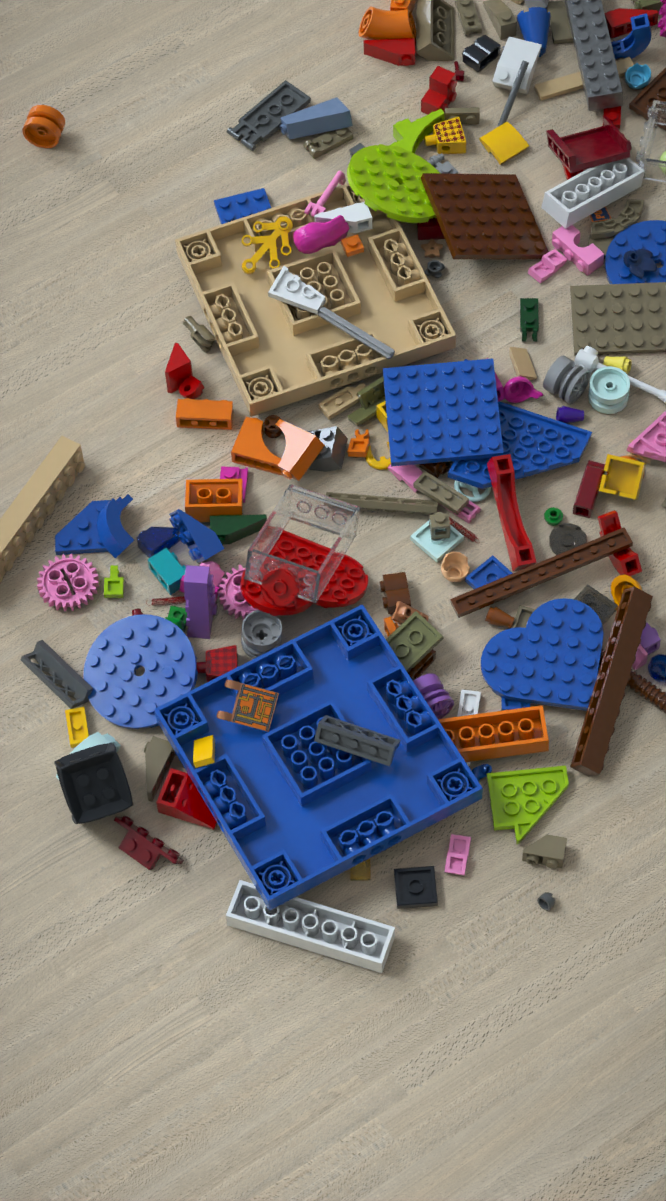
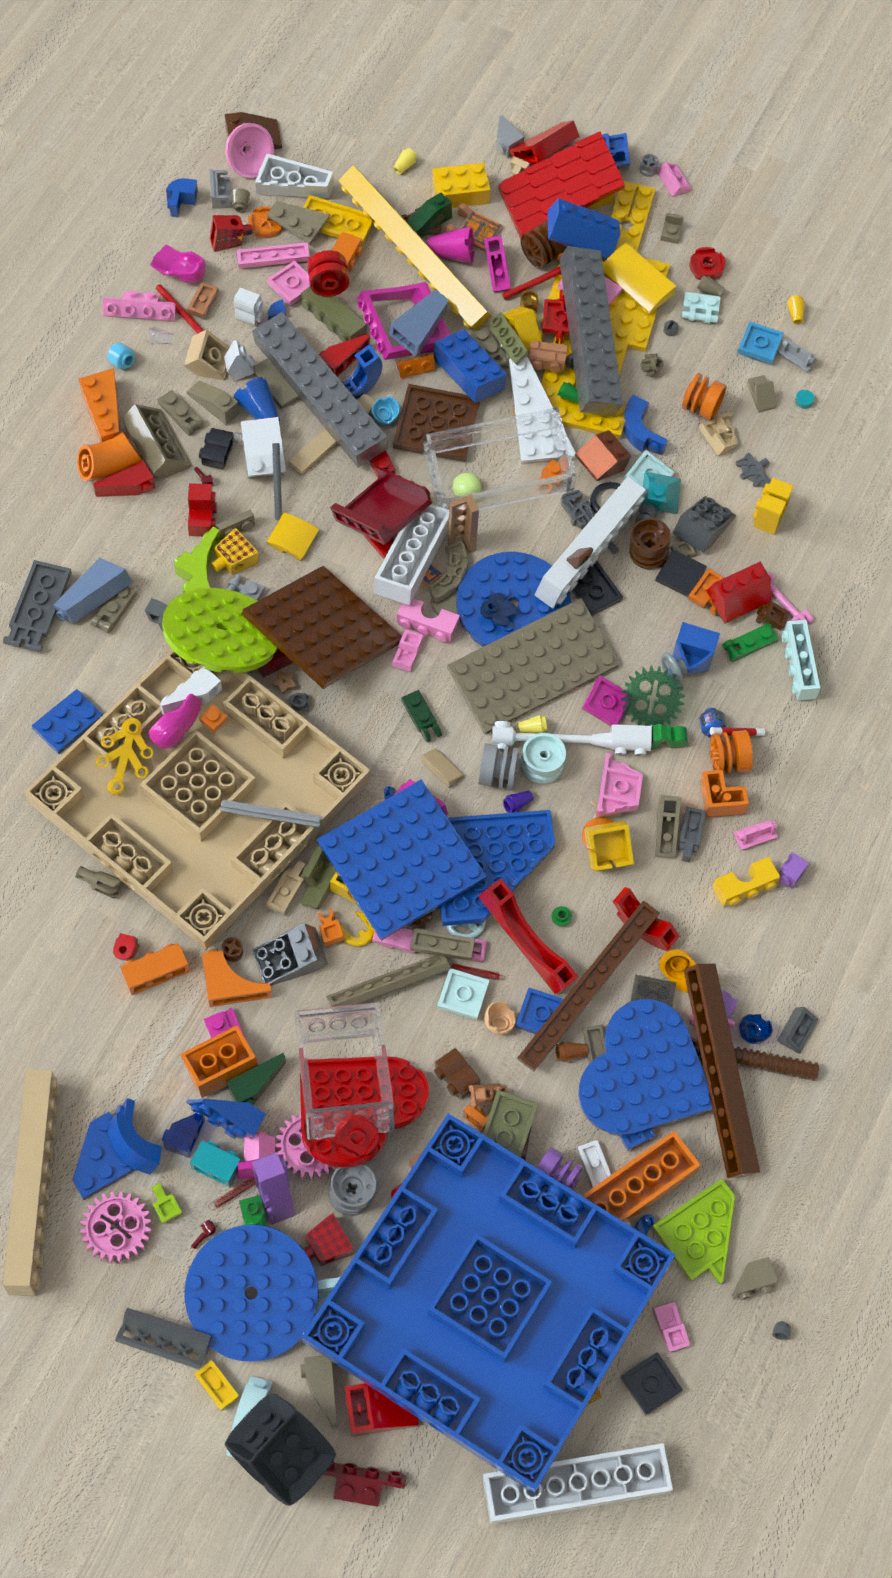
camera: 35 degrees left, 5 degrees up
(177, 369) = (104, 931): red slope -> none
(204, 751) = (377, 1356): yellow tile -> none
(252, 707) = (402, 1283): flag -> none
(293, 291) = (182, 796): white wing -> none
(299, 450) = (281, 967): arch -> none
(318, 207) = (157, 650): bright pink hinge -> none
(356, 740) = (528, 1270): dark grey fence -> none
(439, 521) = (463, 982): dark tan brick -> none
(520, 389) = (457, 795): dark pink hat -> none
(566, 538) = (588, 935): clear smoke tile -> none
(588, 489) = (580, 871): dark red piece -> none
(649, 189) = (468, 521): none -> medium nougat fence

